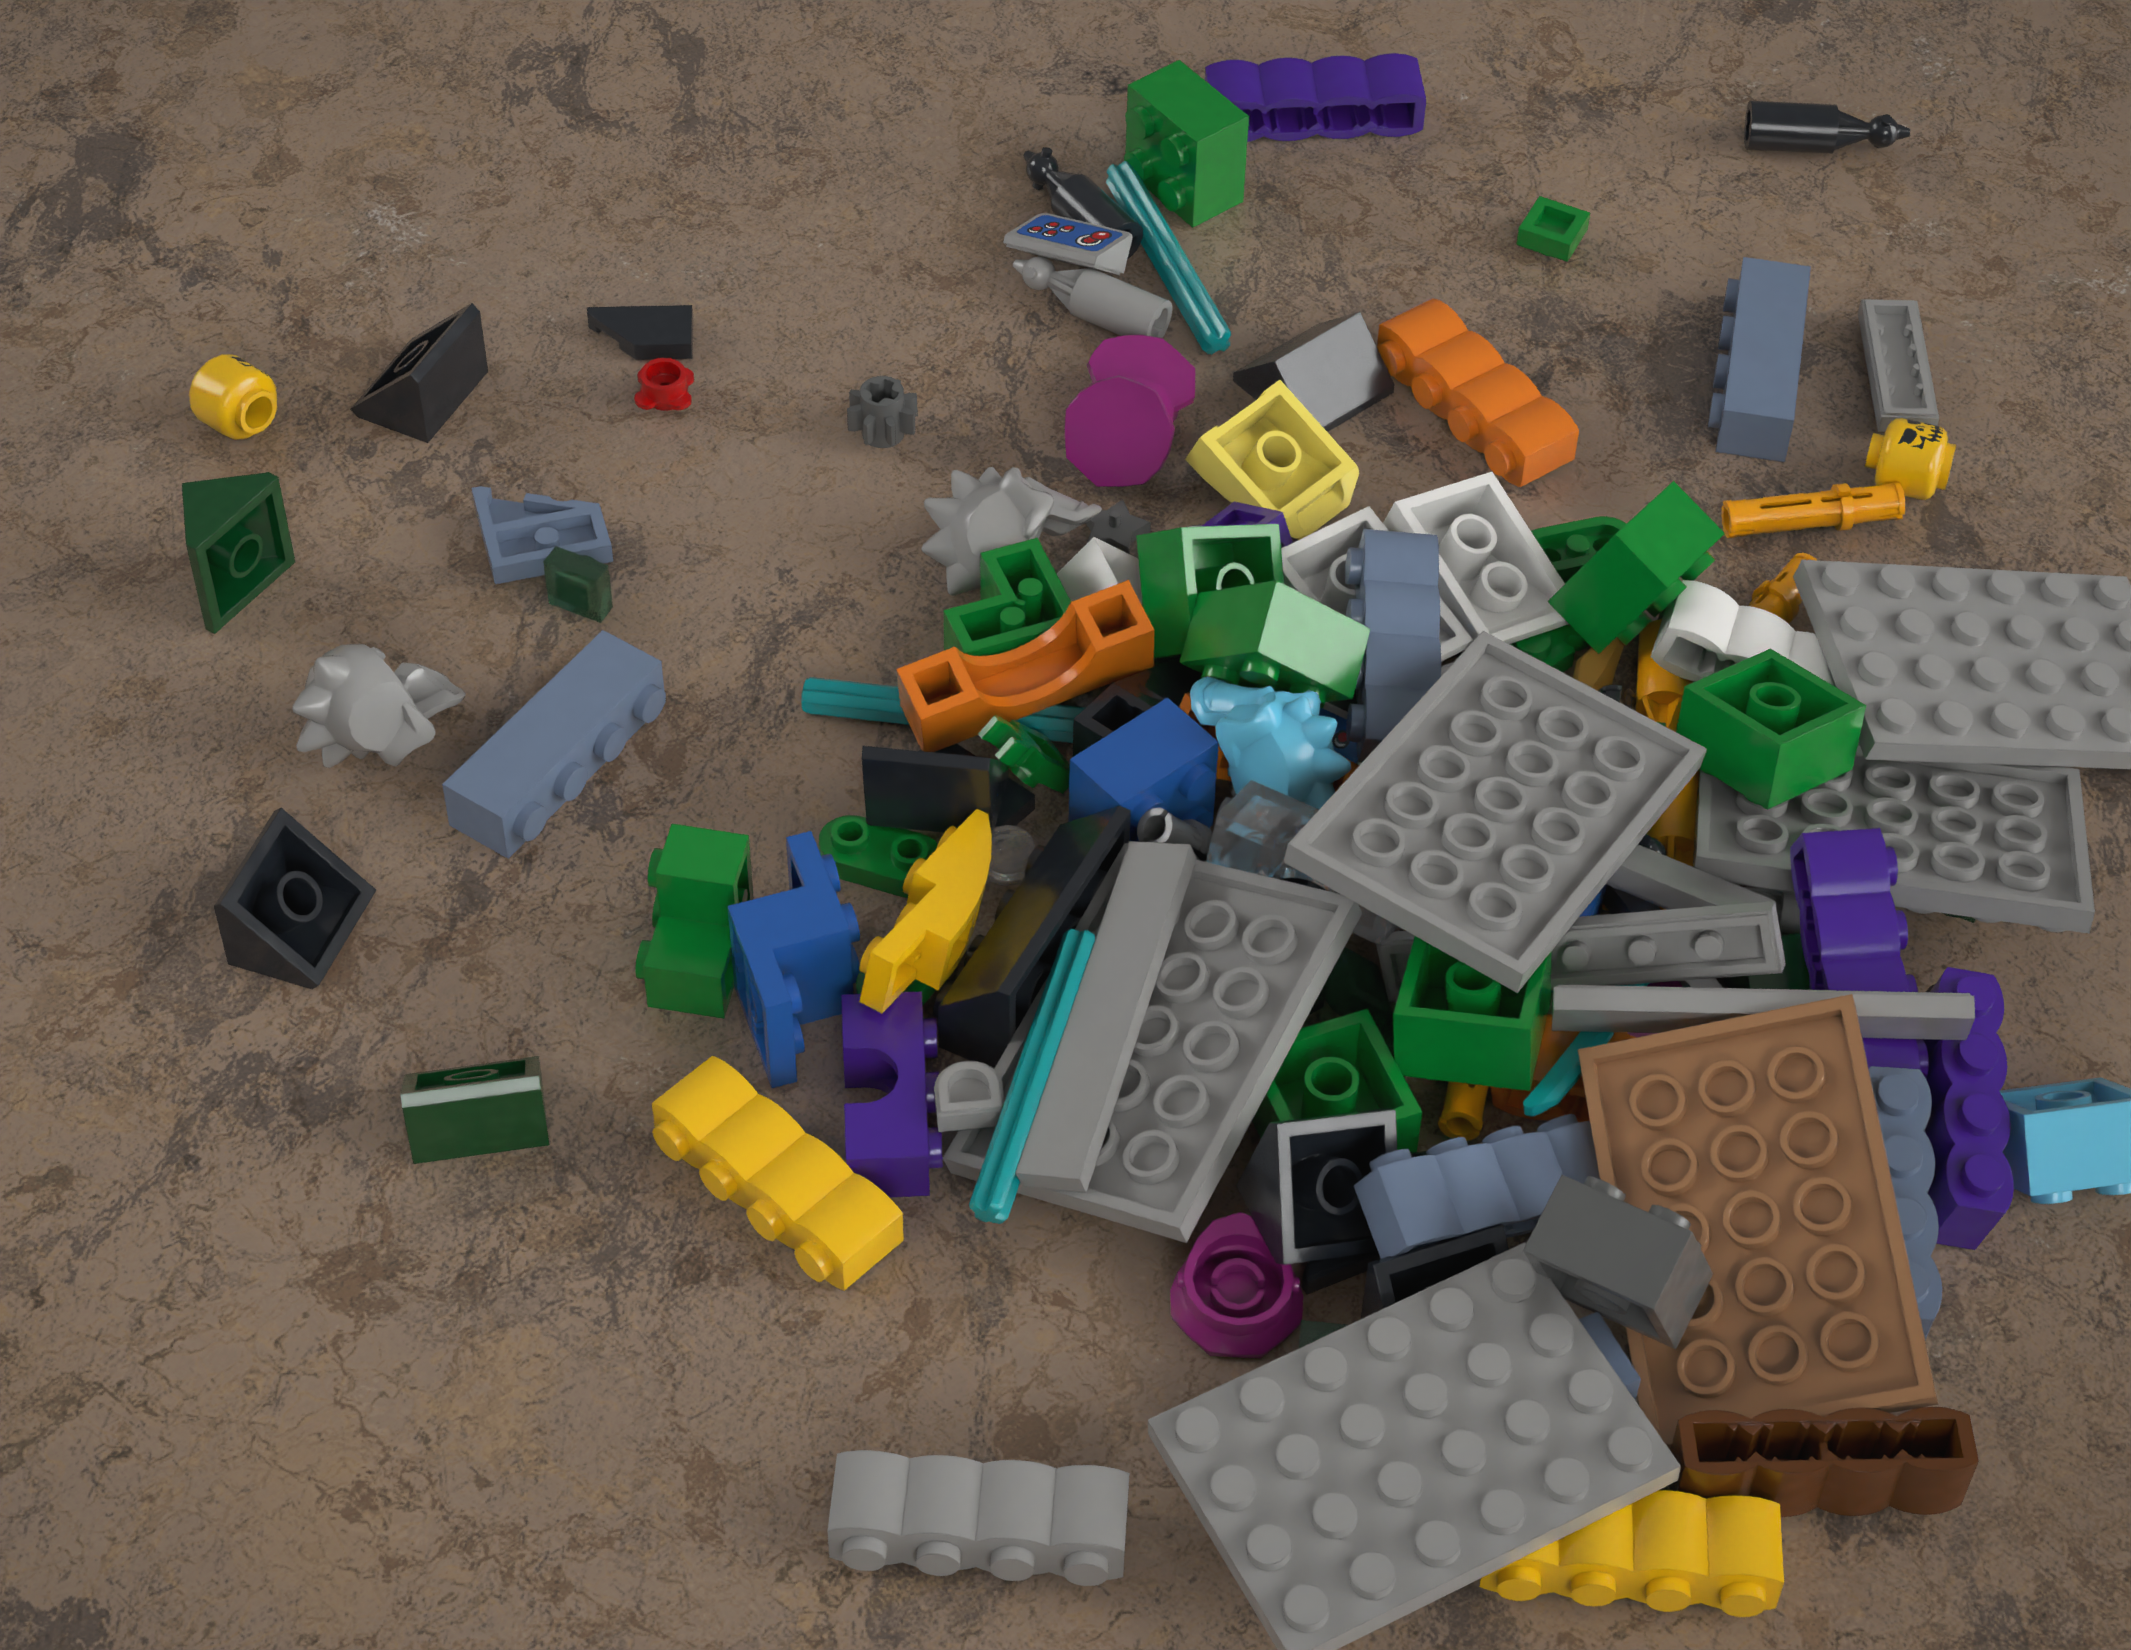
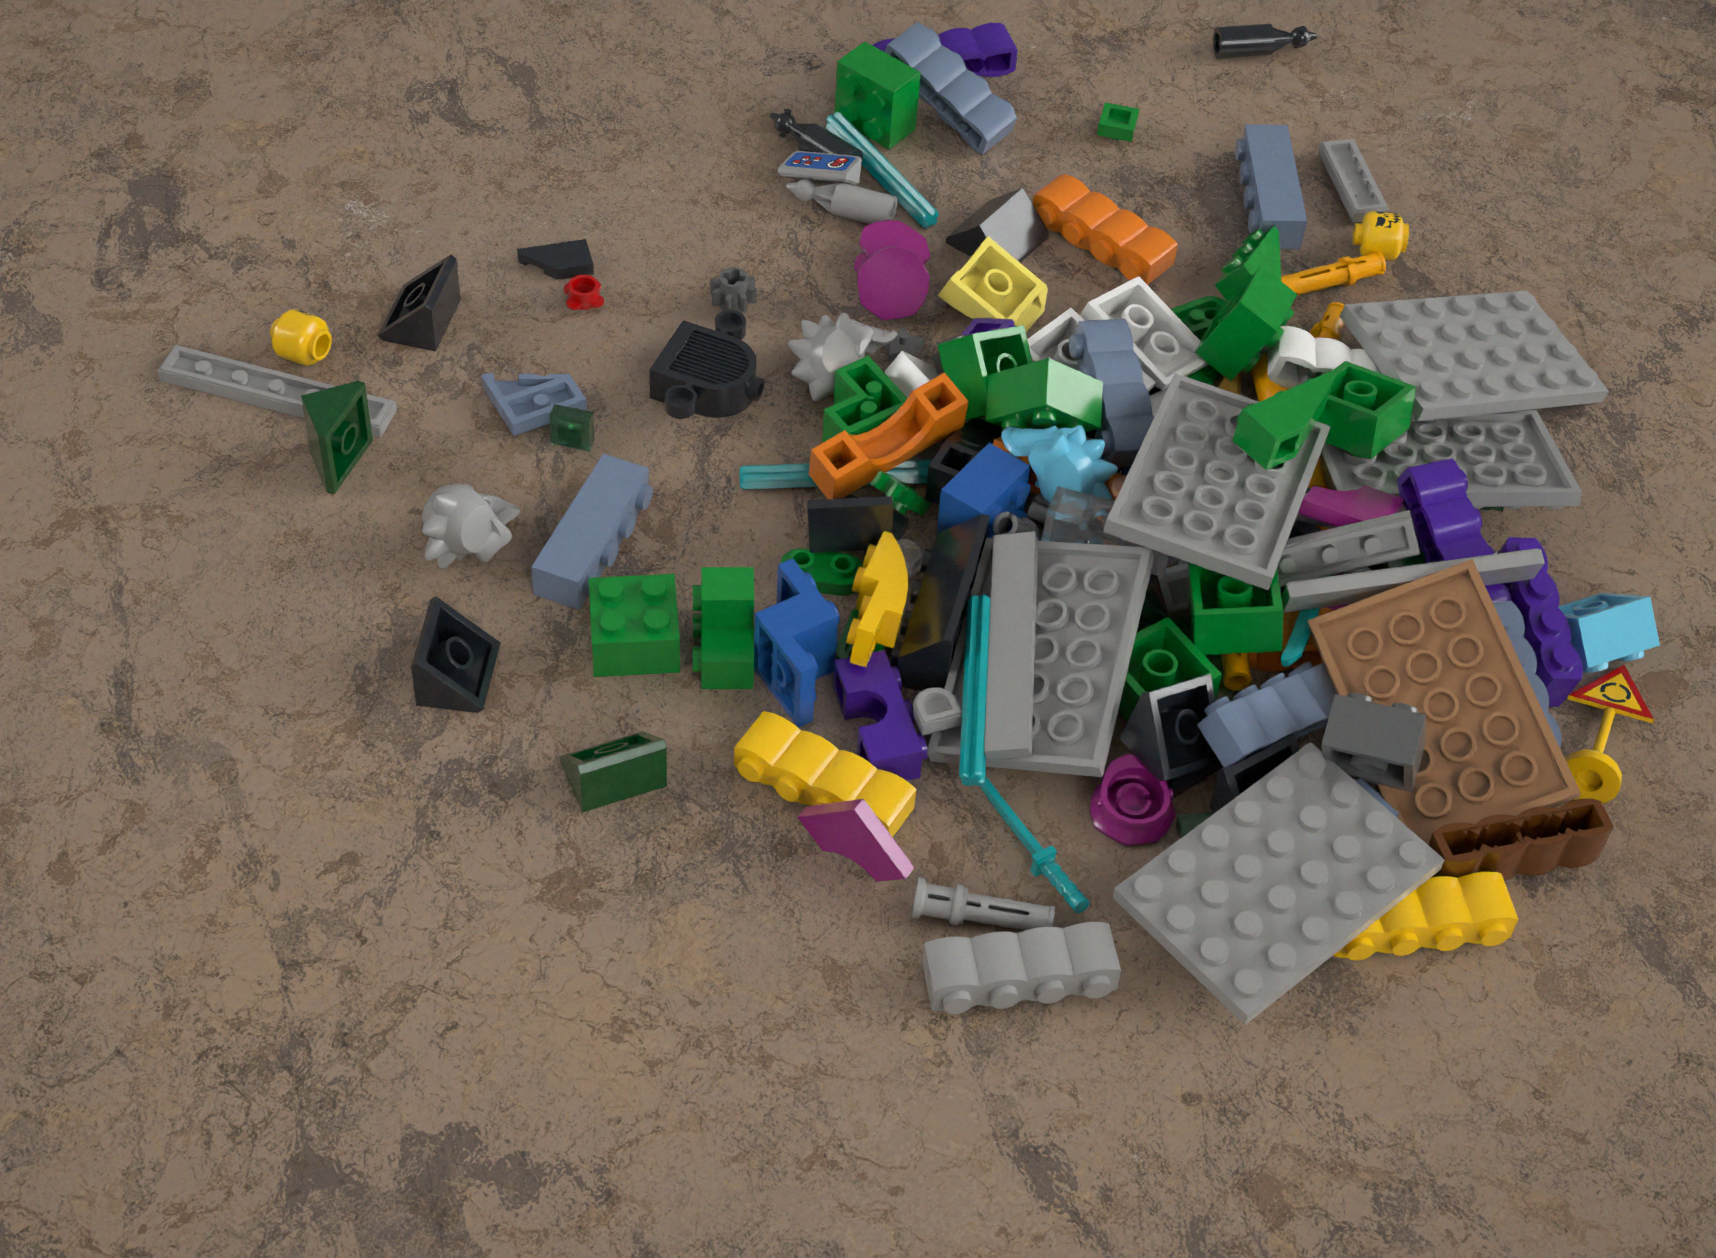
camera: 15 degrees left, 0 degrees up
(162, 459) = (255, 384): none -> light grey tile
(569, 894) = (634, 625): none -> green brick
(783, 1263) = (859, 835): none -> magenta tile
(802, 525) = (707, 370): none -> black piece
(913, 1402) = (960, 905): none -> light grey pin
(1070, 1354) = (1042, 859): none -> teal sword
(1302, 148) = (952, 90): none -> sand blue brick
(1620, 734) = (1280, 424): none -> green slope
(1692, 880) = (1348, 507): none -> magenta tile
(1700, 467) = (1257, 251): none -> green slope
(1981, 1368) = (1592, 770): none -> yellow piece

